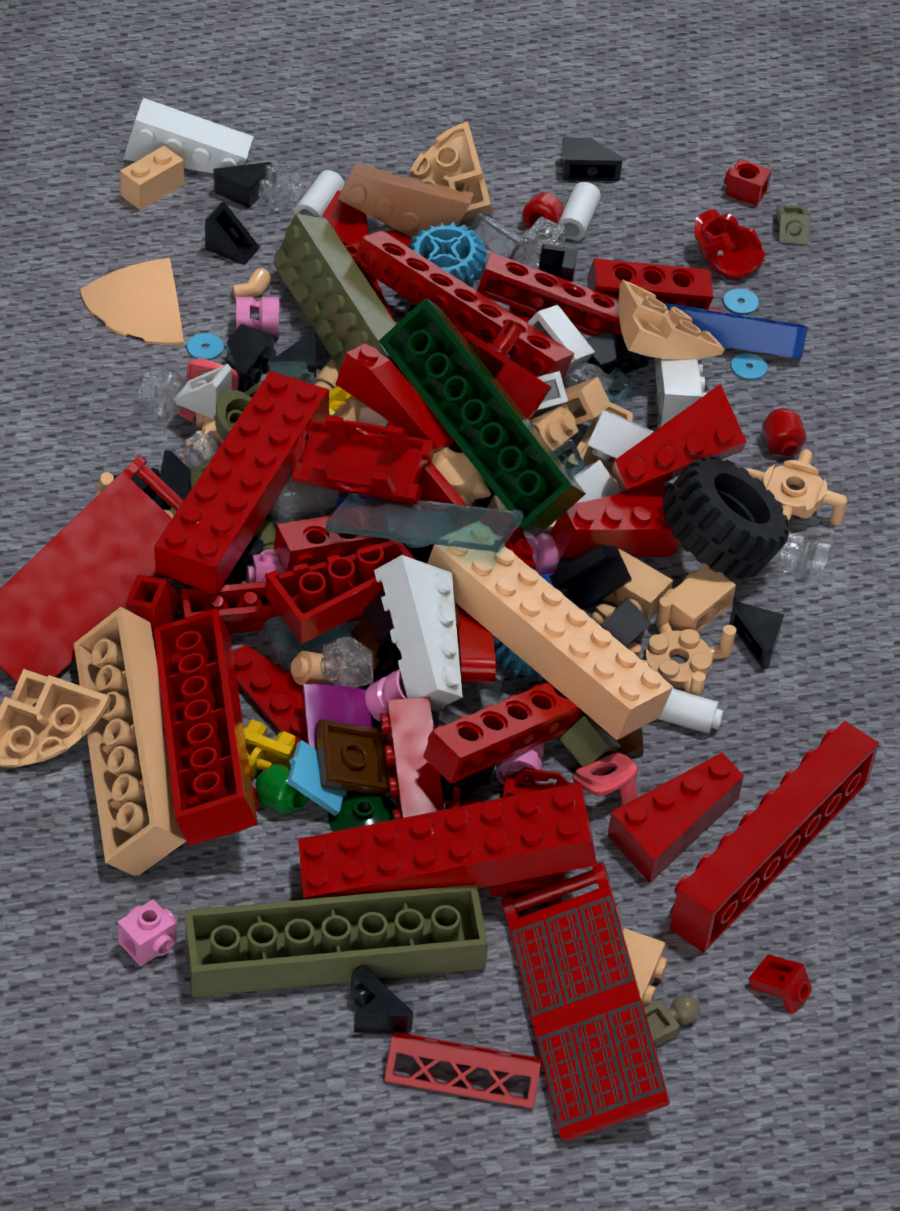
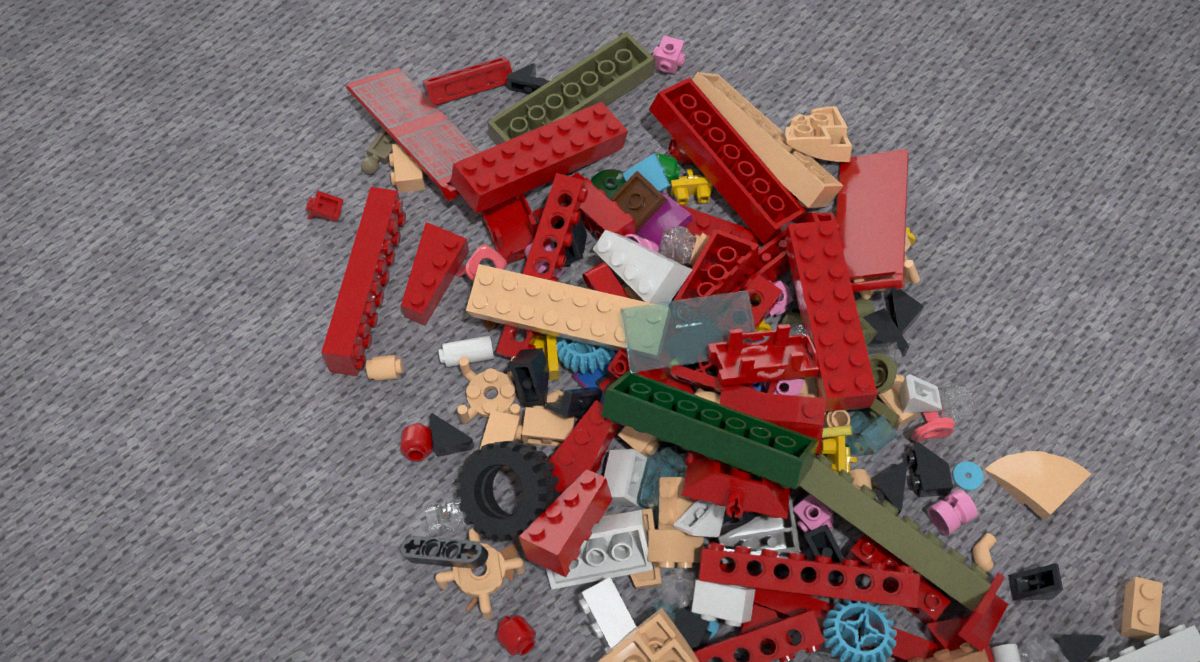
camera: 155 degrees right, 15 degrees up
(325, 202) = (985, 617): none -> red fence
(794, 740) = (384, 367): none -> light nougat brick
(798, 645) = (416, 442): none -> red head
(830, 511) = (445, 547): none -> black beam

